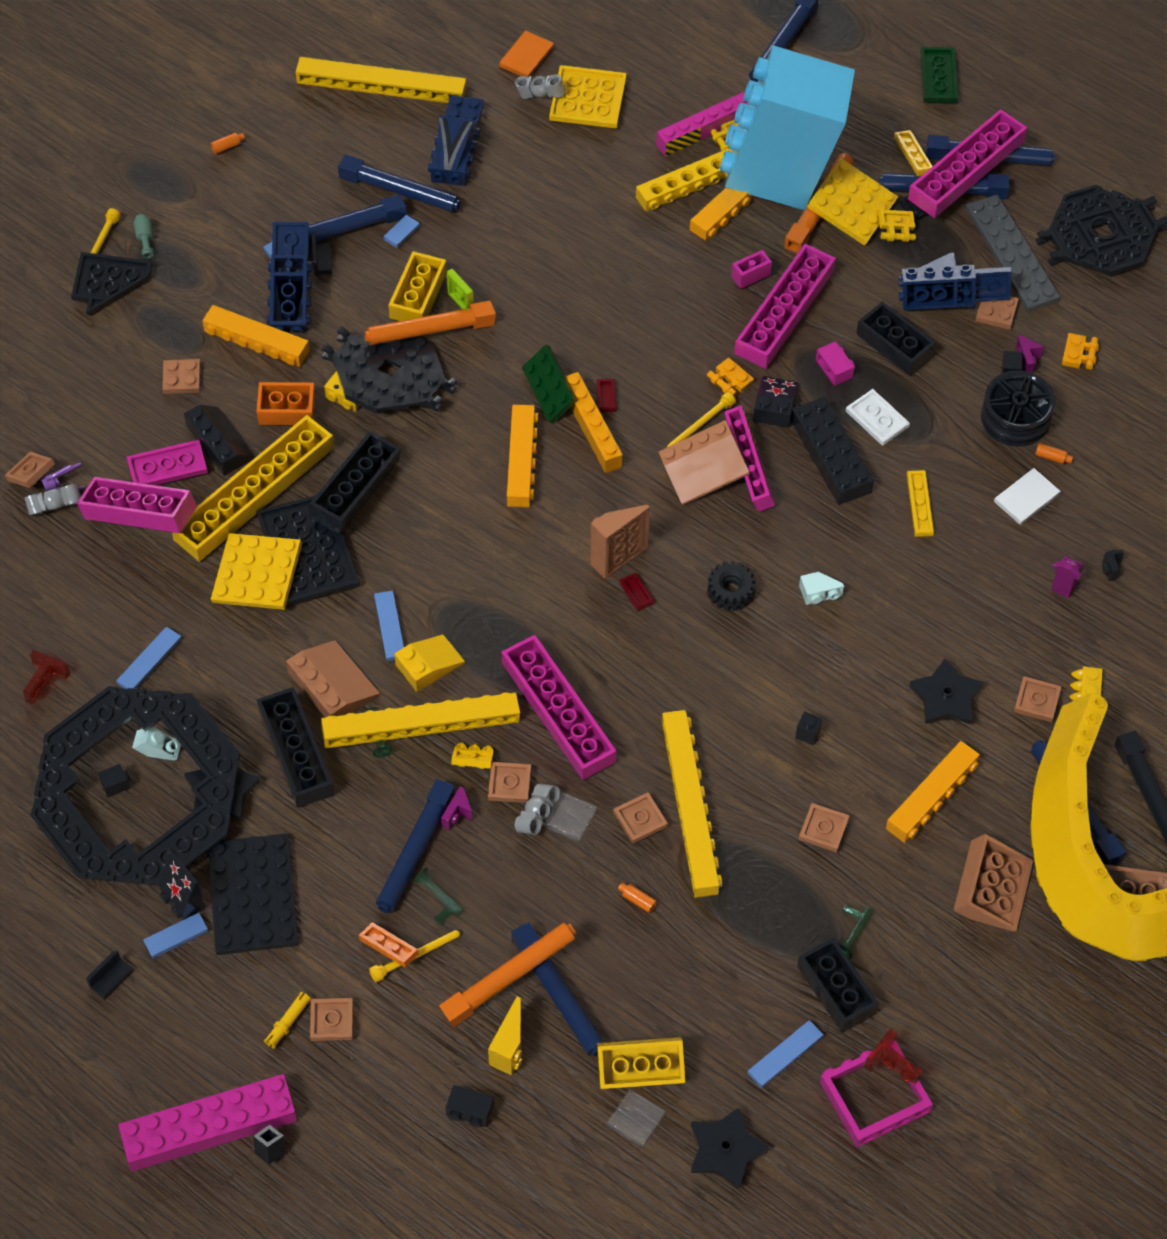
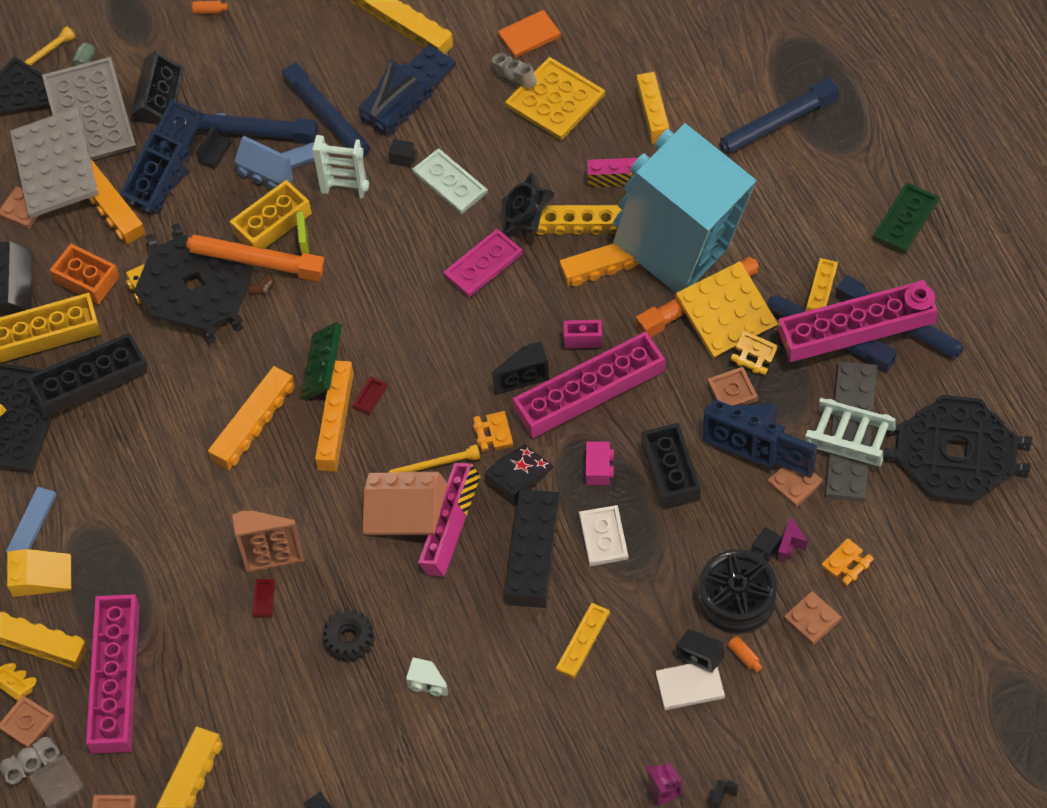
camera: 35 degrees right, 0 degrees up
(185, 270) = (97, 96): none -> light grey plate
(189, 324) = (54, 162): none -> light grey plate
(233, 228) = (156, 87): none -> black slope
(379, 249) = (262, 164): none -> medium blue slope
(441, 217) = (325, 171): none -> light aqua fence
(450, 348) = (263, 287): none -> reddish brown arm
(491, 192) = (402, 153): none -> black brick
(546, 198) = (450, 181): none -> light aqua tile
(624, 250) = (483, 263): none -> dark pink plate
(632, 189) = (524, 206): none -> black plate
(676, 71) = (652, 105): none -> yellow brick
(727, 314) = (522, 369): none -> black slope
(896, 258) = (733, 388): none -> nougat plate
(1005, 127) = (916, 303): none -> dark pink piece
(1020, 264) = (845, 448): none -> light aqua fence
(1020, 465) = (700, 650): none -> black brick
(1083, 404) = (812, 618): none -> nougat plate

